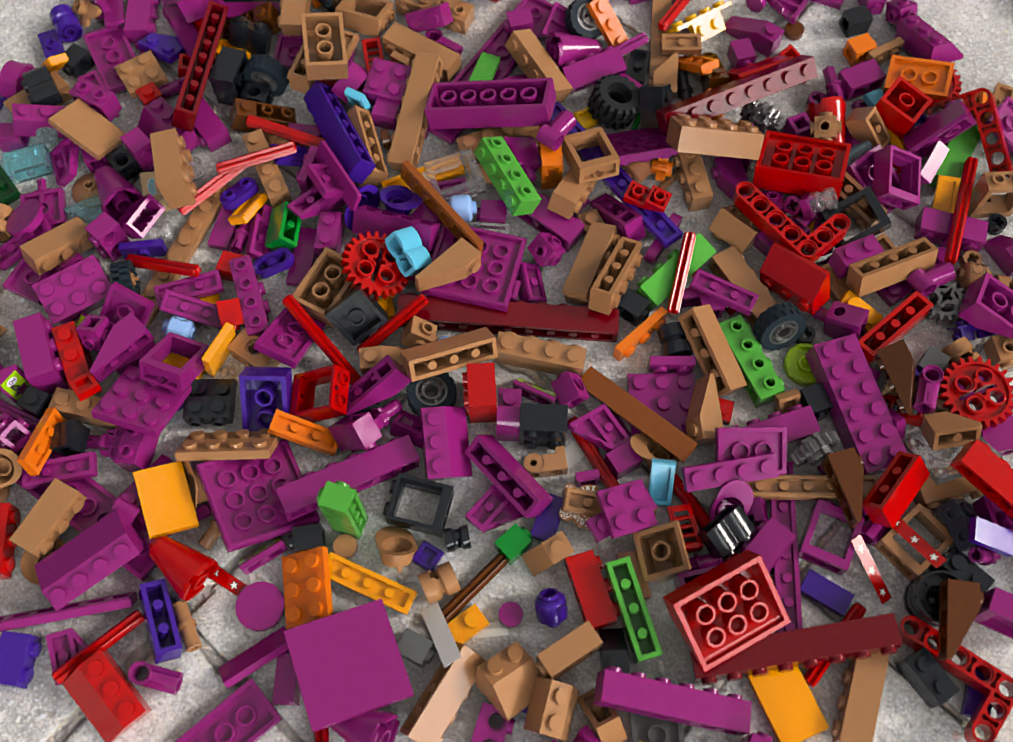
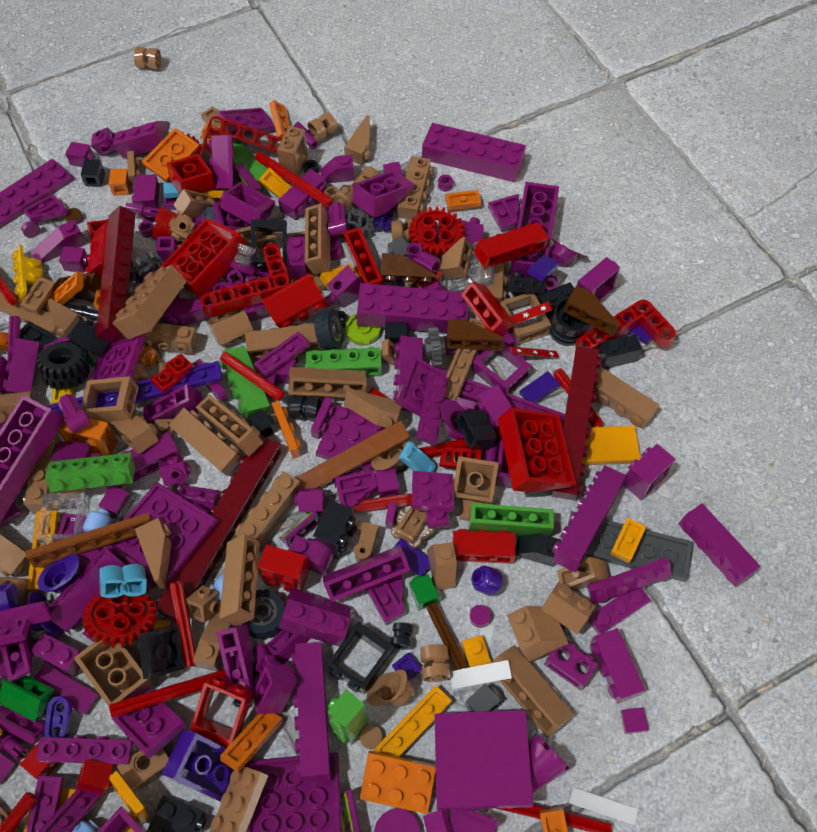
camera: 70 degrees left, 5 degrees down
(307, 537) = (353, 768): black brick -> none
(568, 652) = (528, 577): medium nougat window -> none

